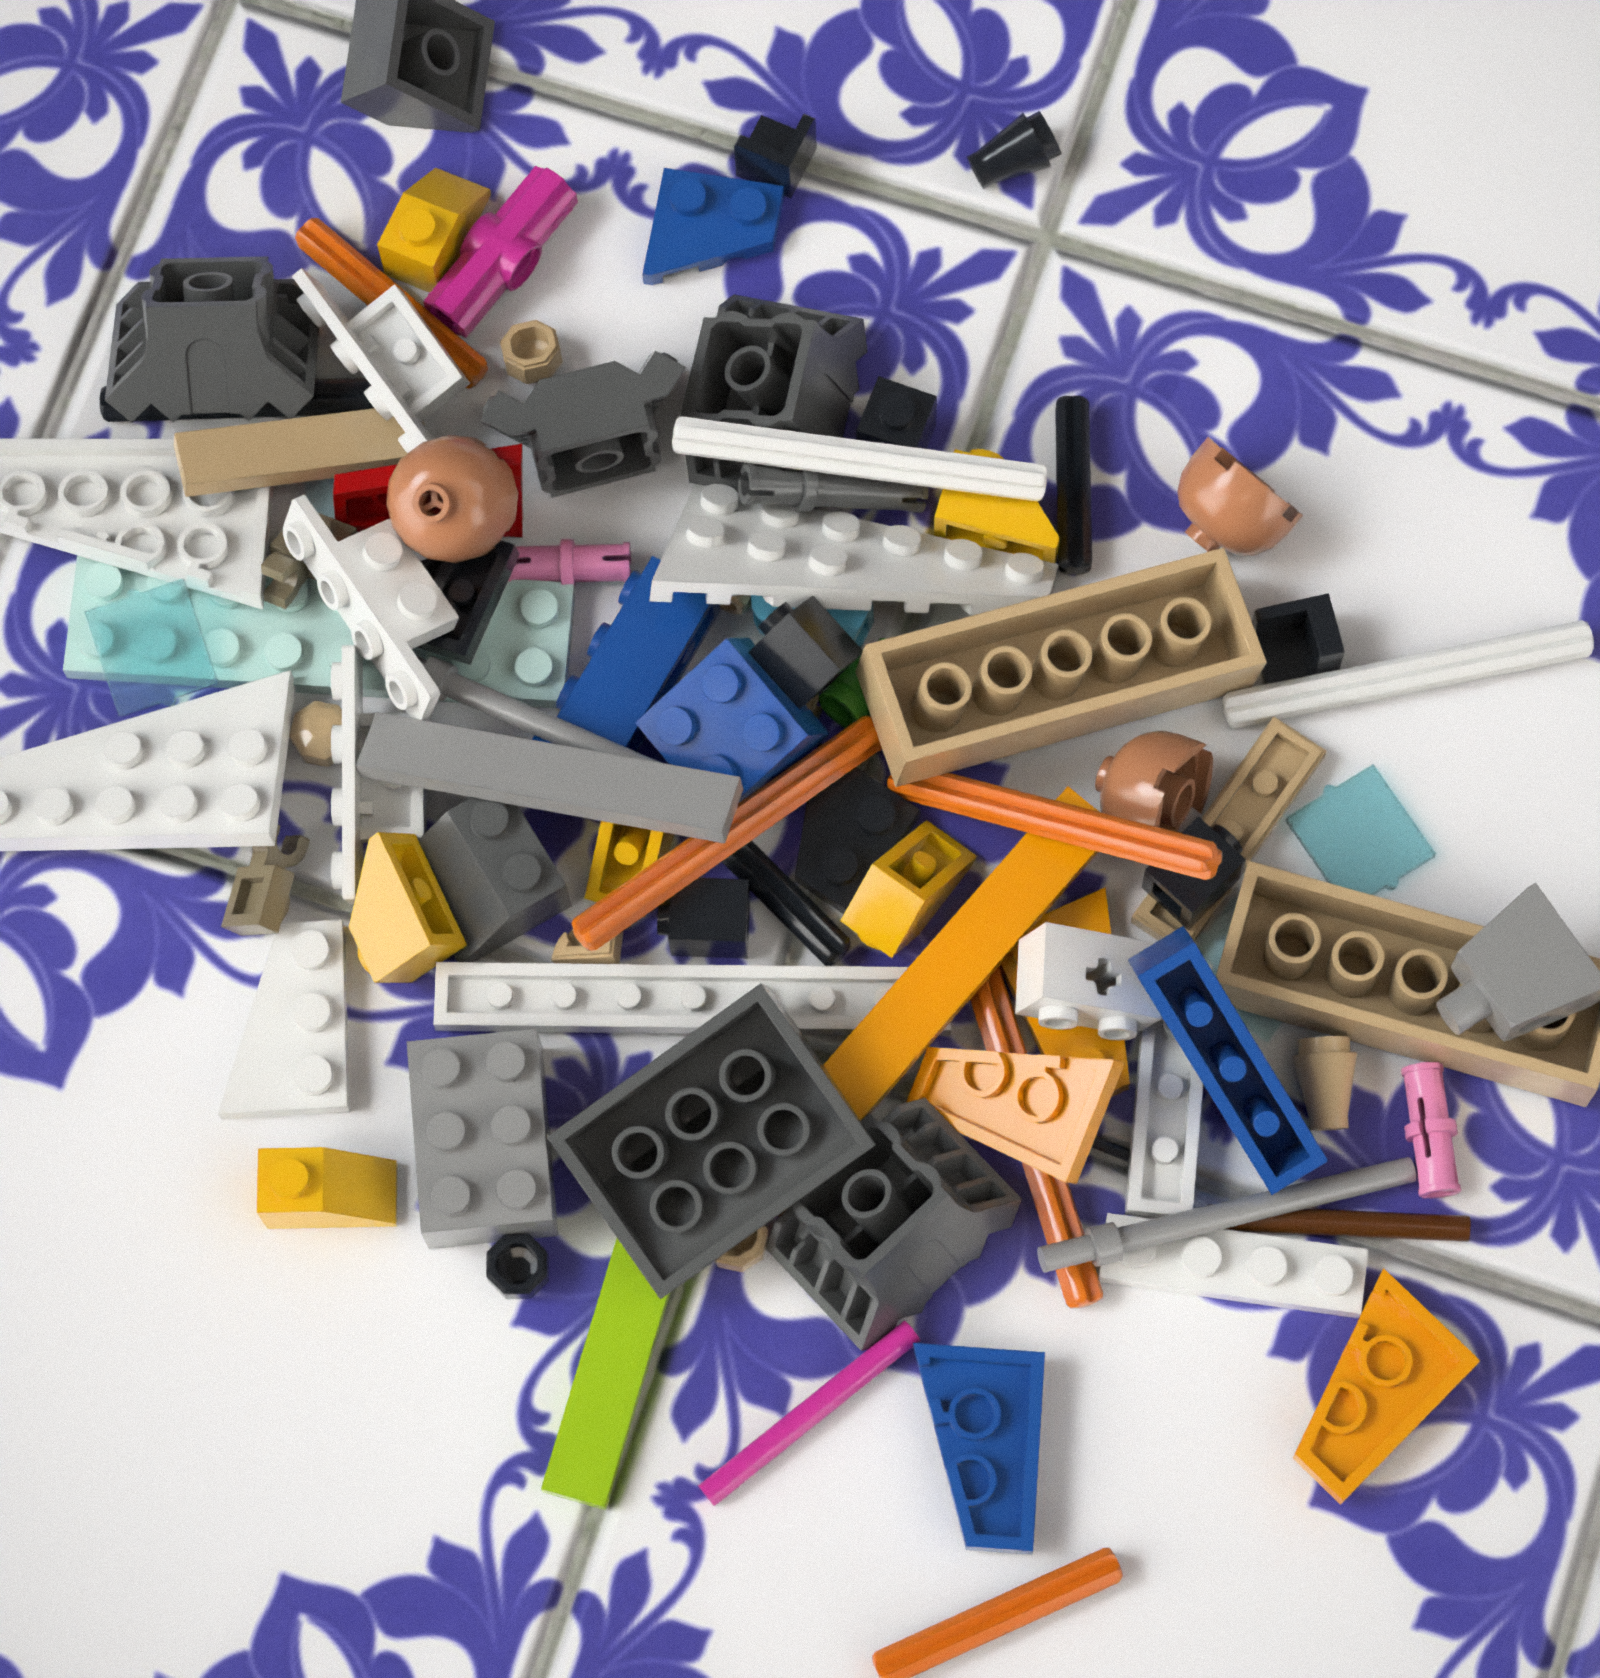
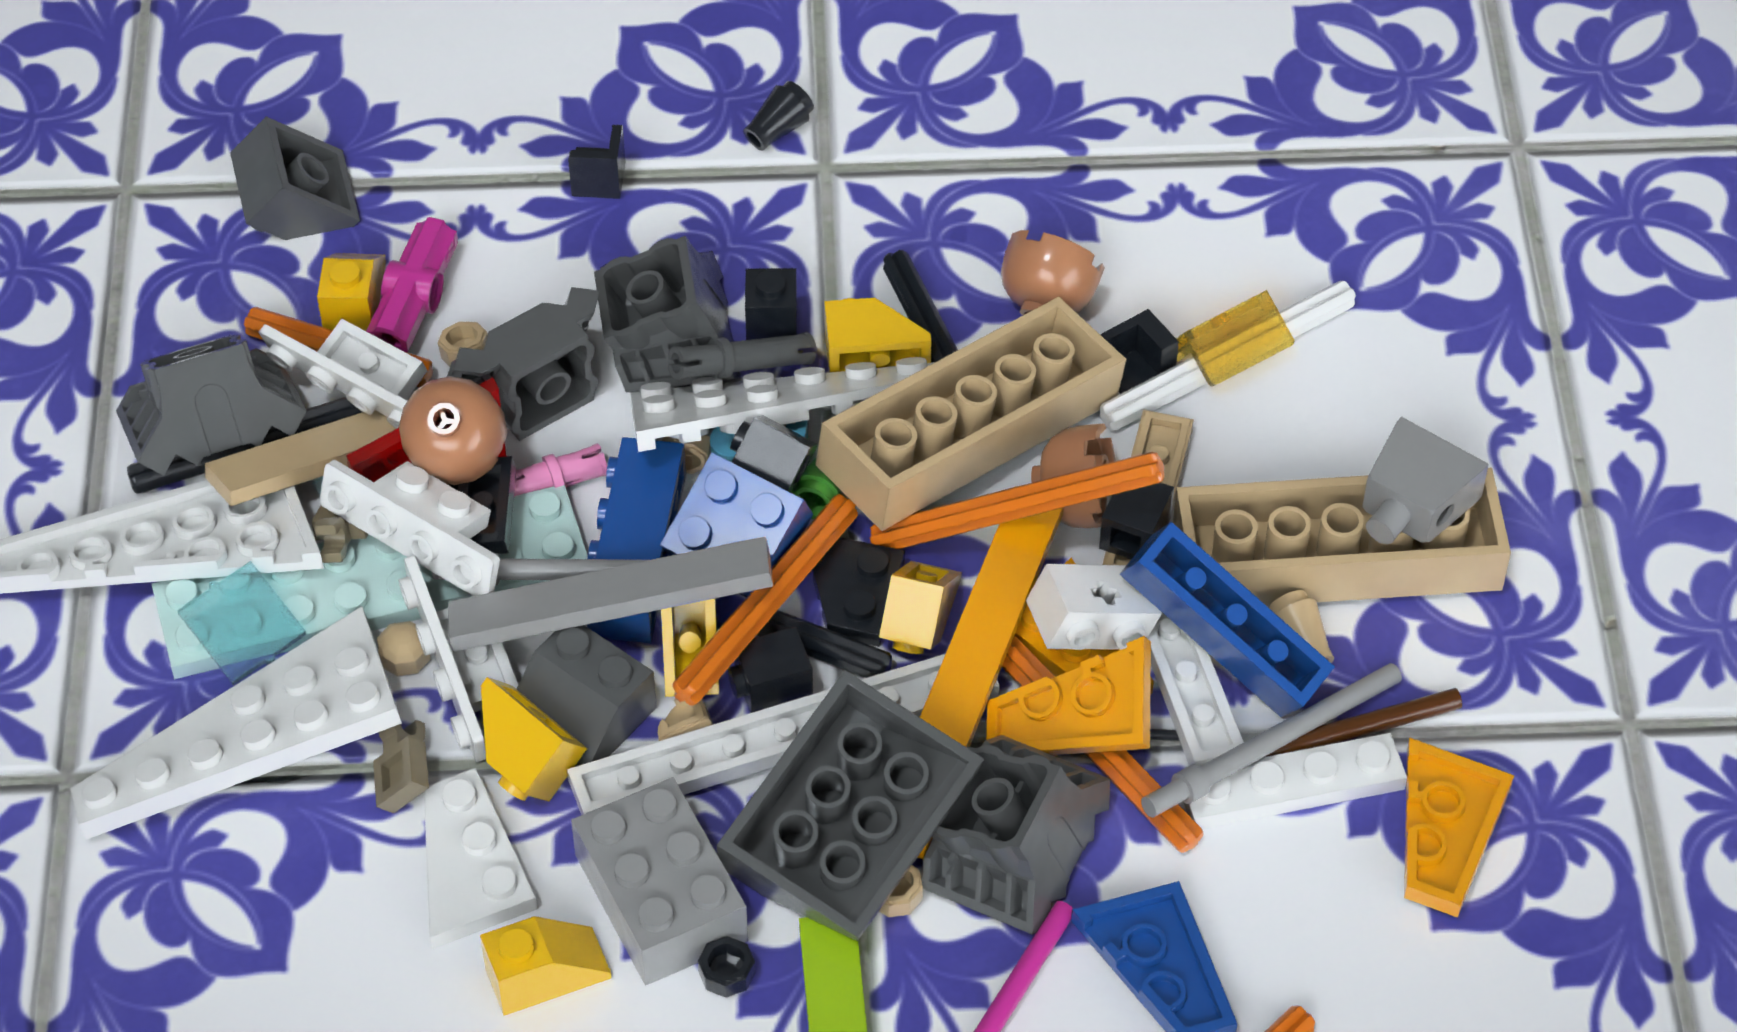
camera: 25 degrees left, 20 degrees down
(709, 221) = (566, 226): blue wing -> none
(859, 458) = (756, 319): white axle -> none
(1361, 834) = (1242, 457): clear light blue piece -> none
(1419, 661) = (1236, 339): none -> clear yellow panel
(1431, 1130) = (1414, 664): bright pink pin -> none

